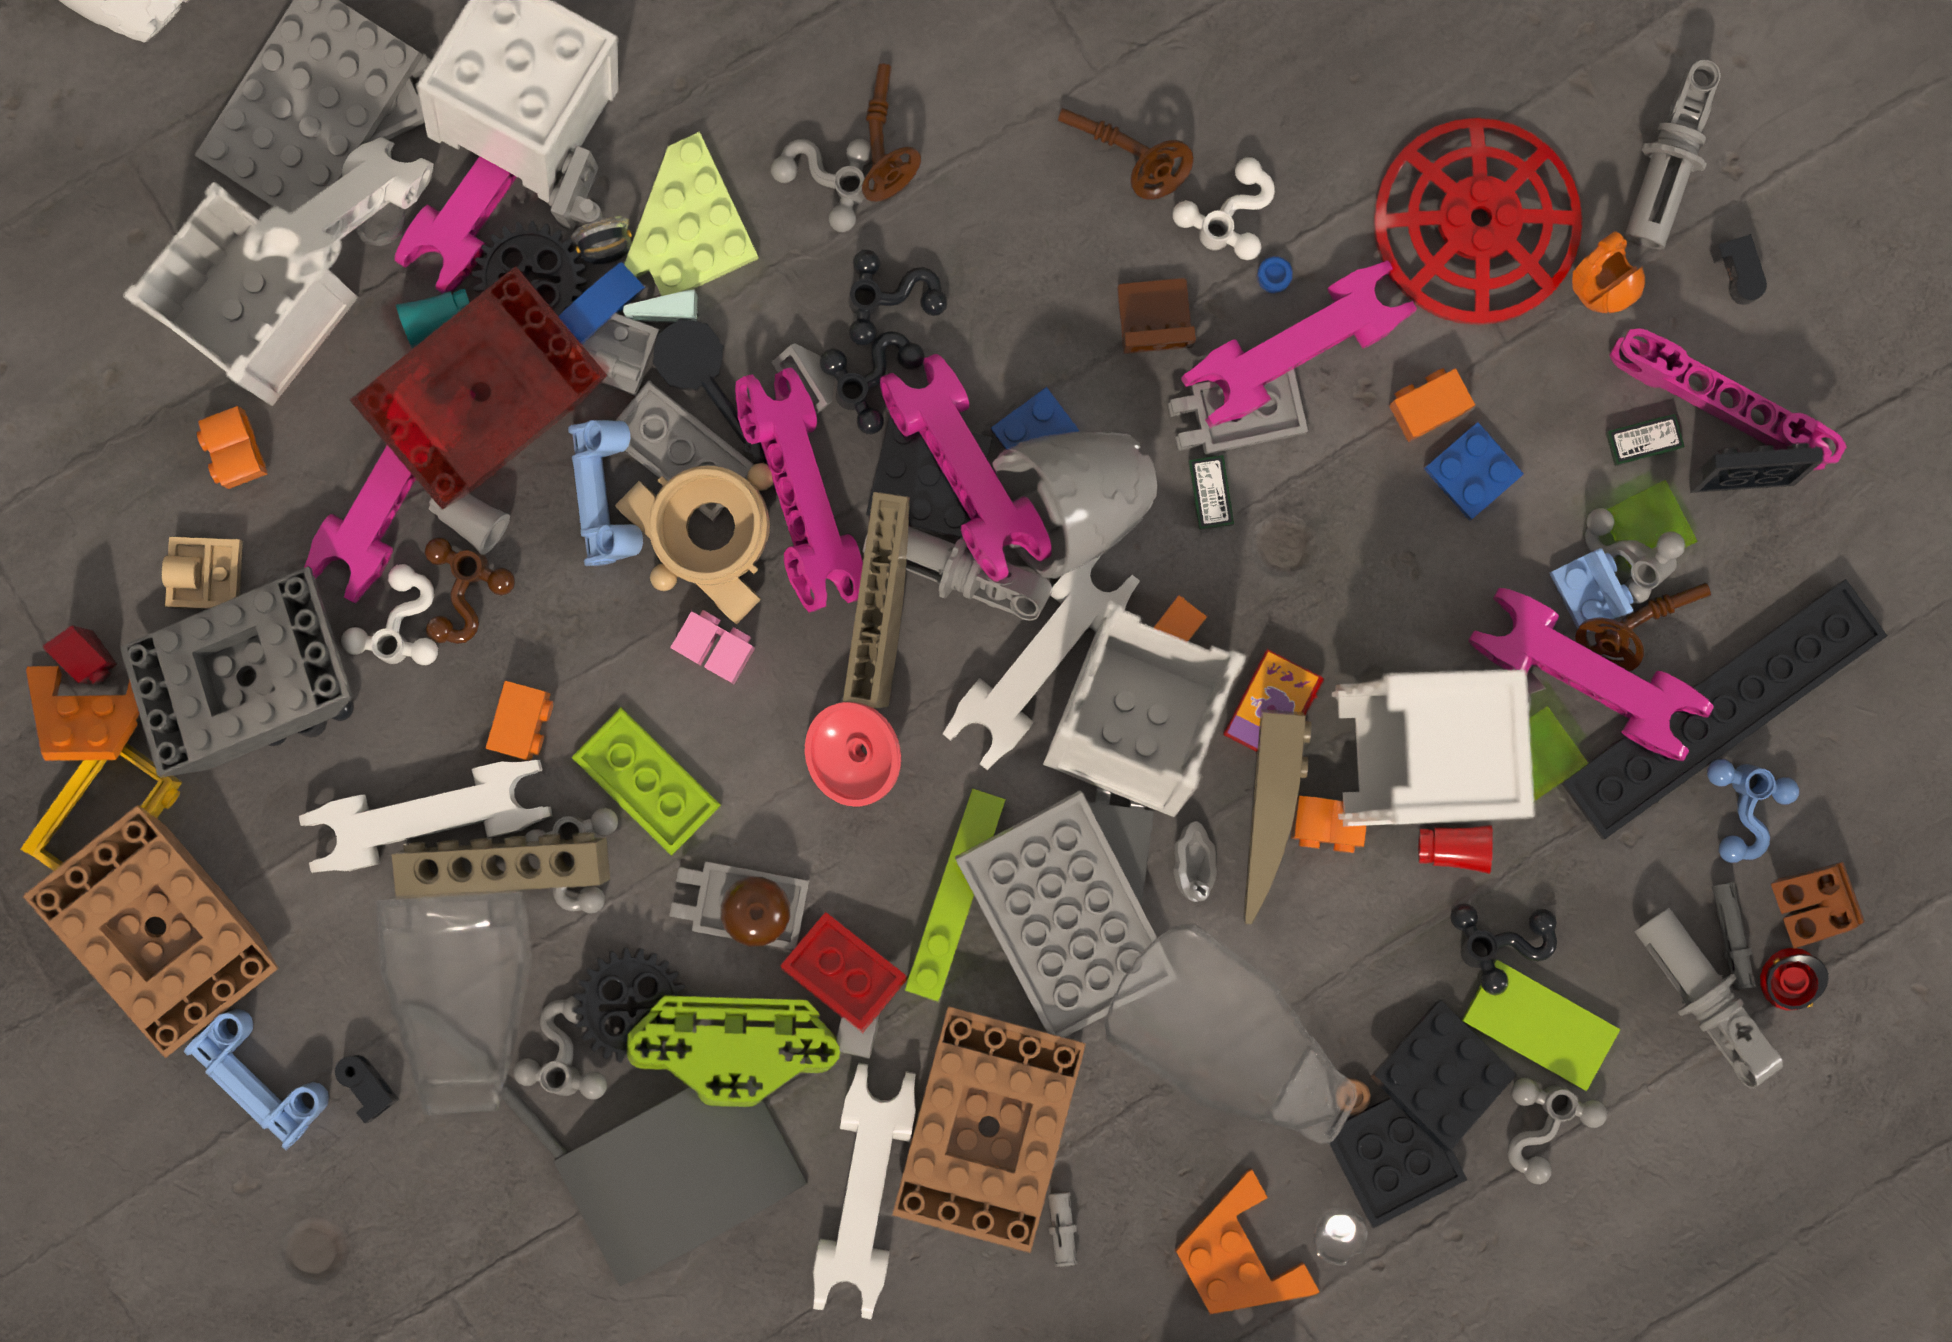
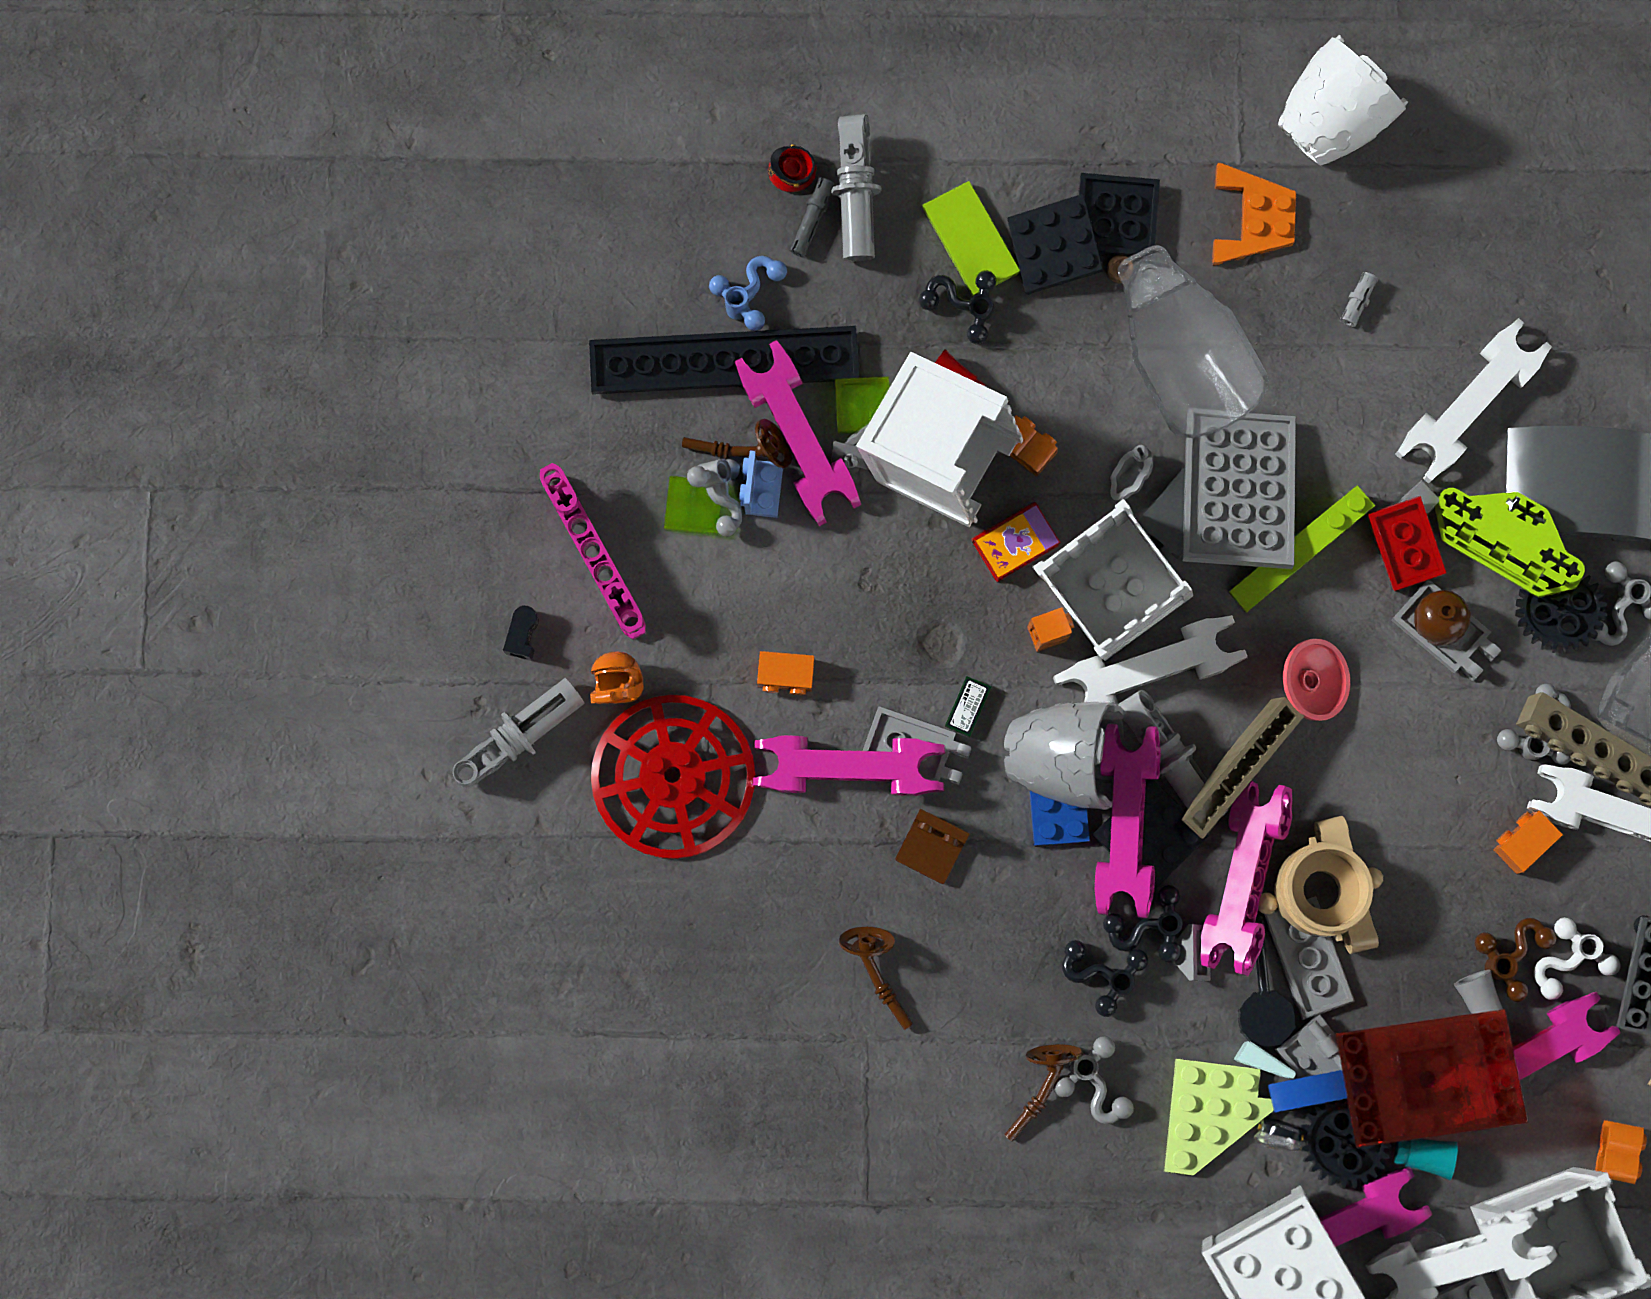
camera: 145 degrees left, 5 degrees down
(569, 199) = (1289, 1174): light grey plate -> none
(603, 541) = (1369, 997): light blue piece -> none
(646, 781) = (1462, 750): lime tile -> none
(698, 638) = (1371, 823): bright pink piece -> none
(998, 1181) = (1395, 359): medium nougat slope -> none
(1246, 245) = (839, 855): white piece -> none
(1274, 274) = (832, 825): blue tile -> none
(1274, 799) = (1055, 479): dark tan slope -> none
(1339, 1235) = (1184, 187): clear hair -> none
(1473, 471) = (785, 612): blue plate -> none
(1527, 1092) = (1007, 202): light grey piece -> none
(1645, 439) = (659, 563): tile -> none
(1756, 469) = (606, 493): black plate -> none
(1836, 901) = (748, 201): dark orange hips -> none

